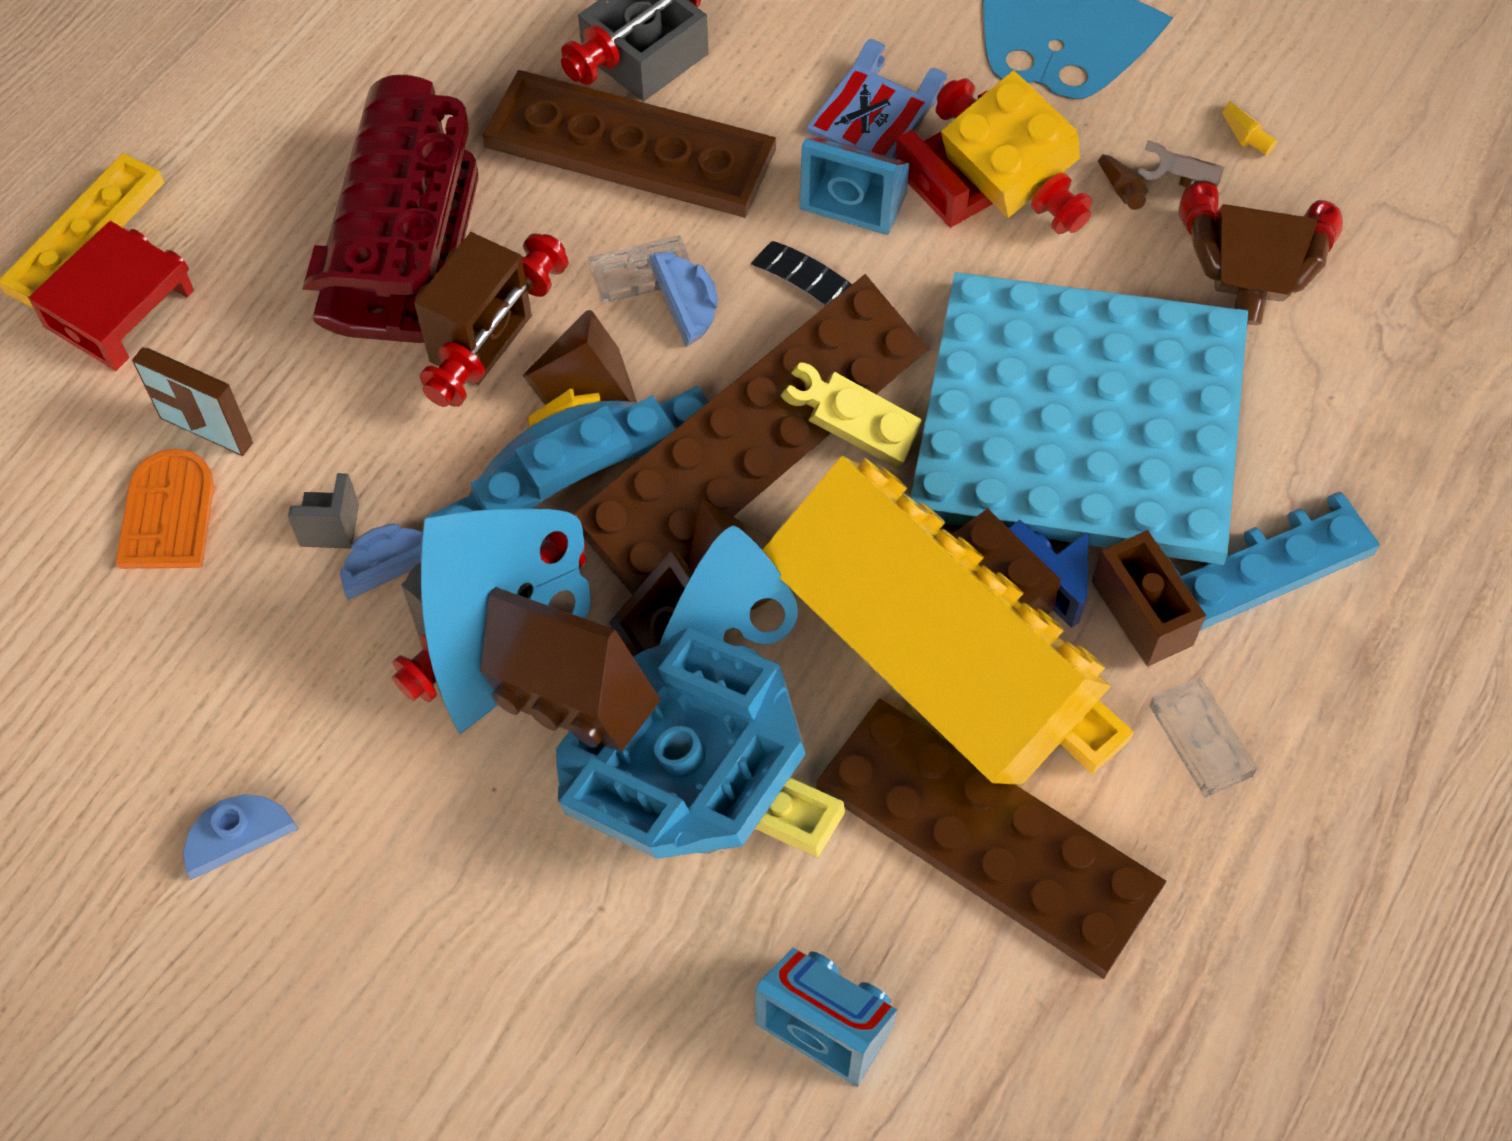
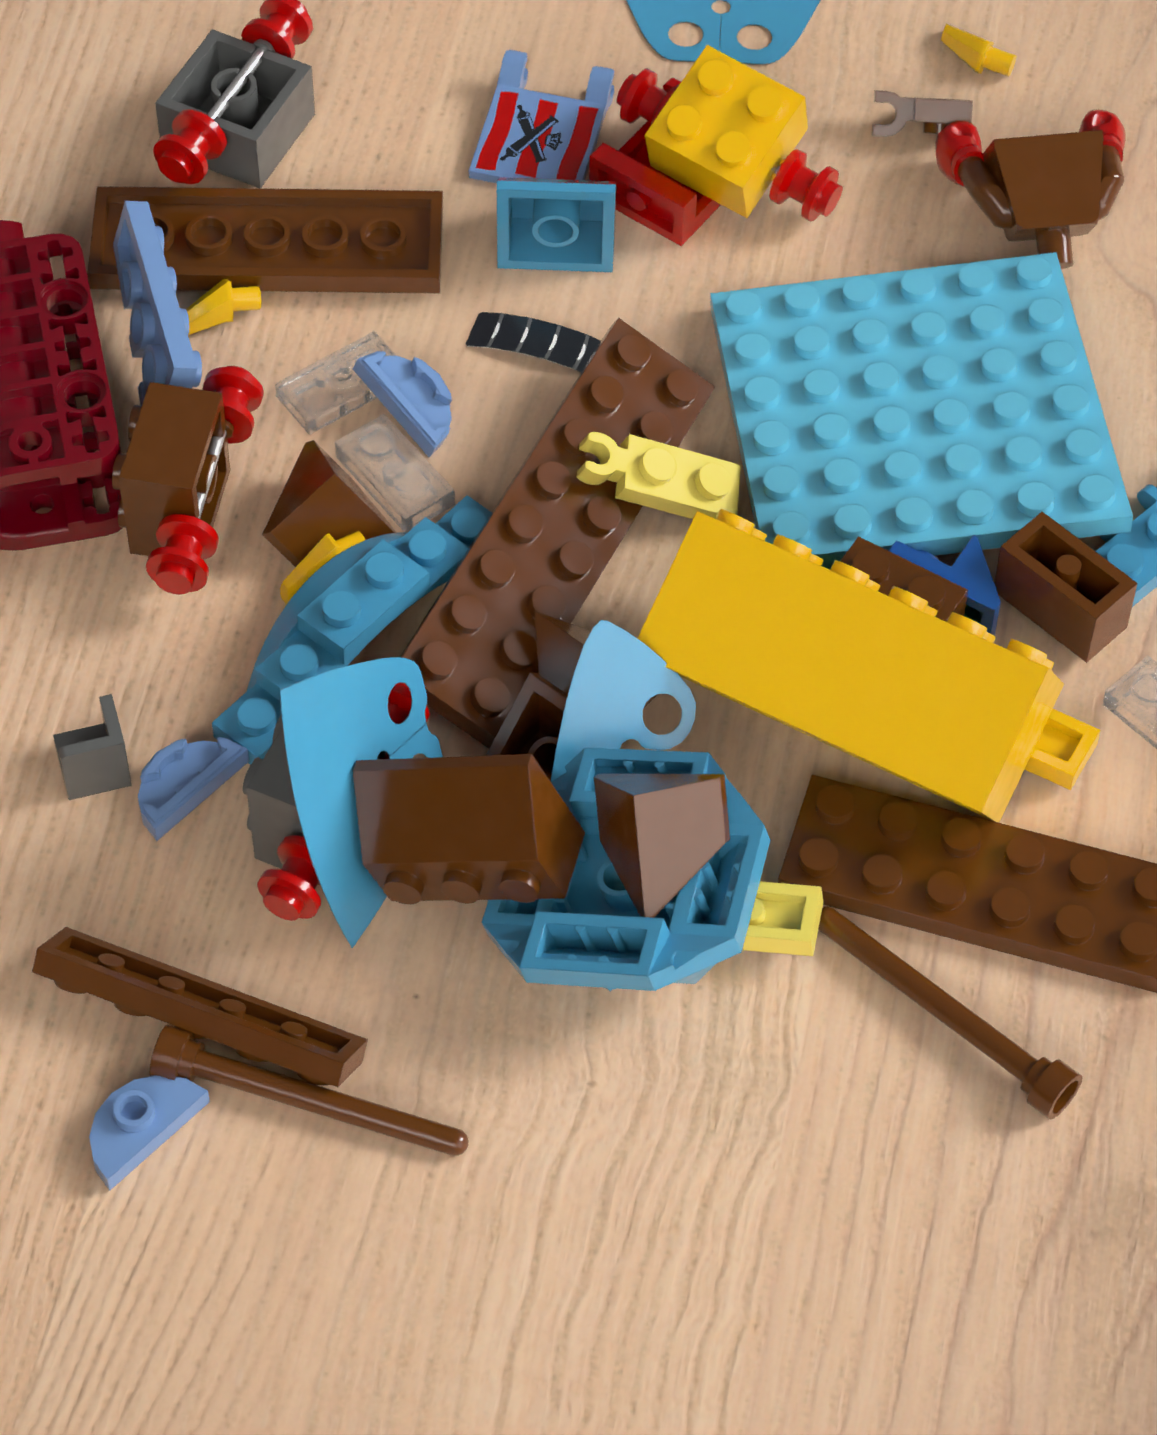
camera: 20 degrees left, 5 degrees down
(286, 786) = (181, 1056): none -> reddish brown piece
(318, 751) = (195, 1004): none -> reddish brown plate
(515, 158) = (149, 288): none -> medium blue wing
(570, 186) = (220, 303): none -> yellow bar
(652, 352) = (394, 473): none -> clear plate
(714, 721) = (660, 830): none -> slope
(824, 1013) = (886, 1110): dark azure slope -> none
(971, 1033) = (1046, 1083): none -> reddish brown piece
(1125, 182) = (865, 145): reddish brown bar -> none

